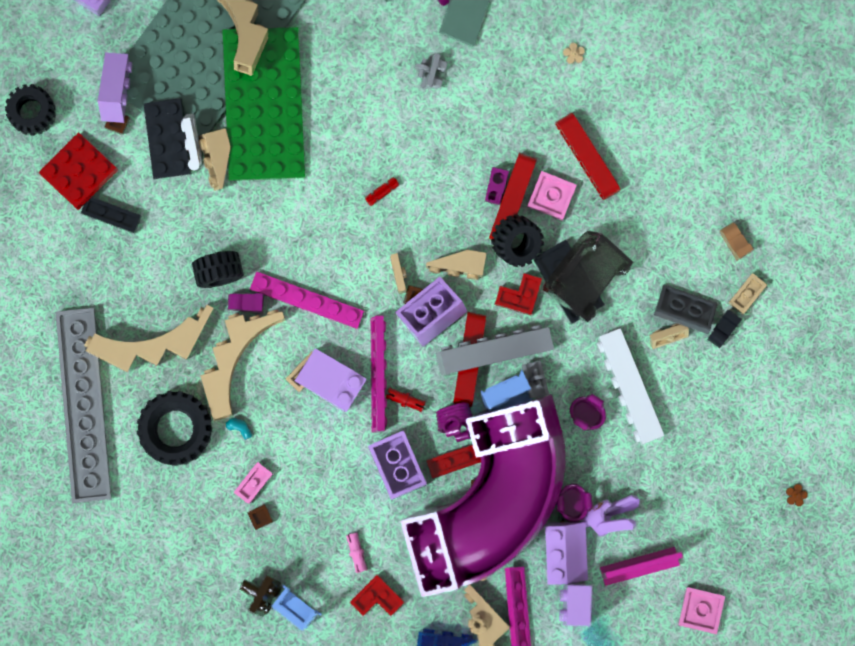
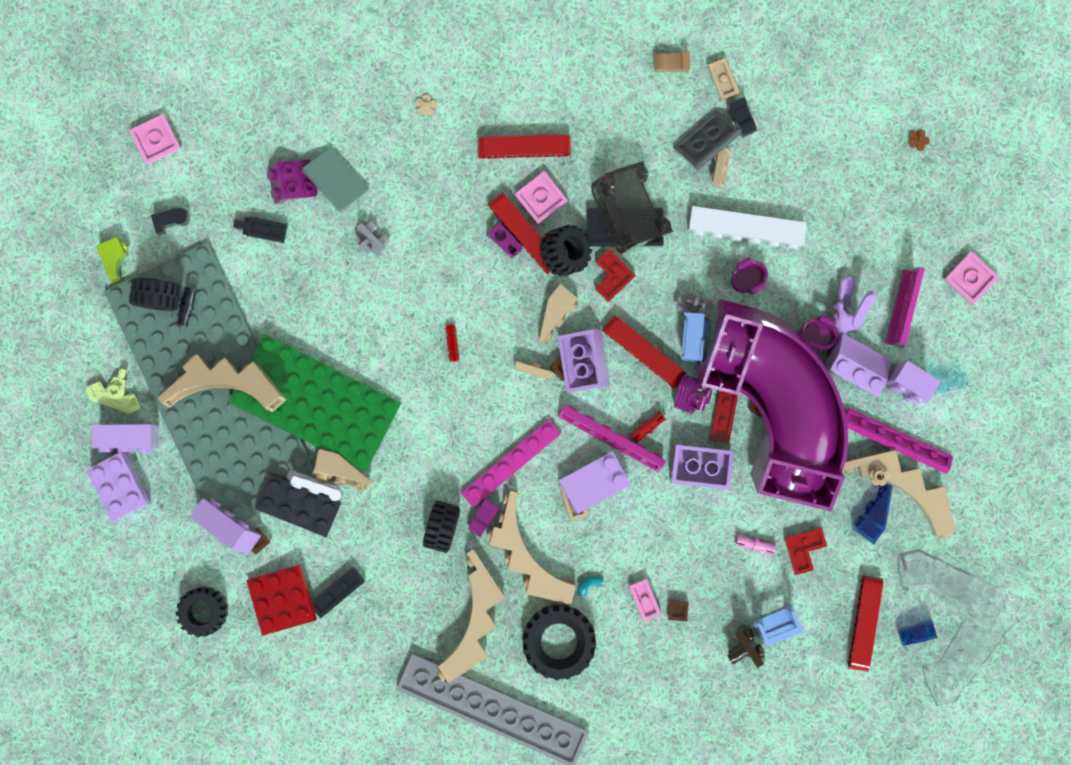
camera: 55 degrees left, 5 degrees up
(495, 350) = (651, 326): light grey brick -> none

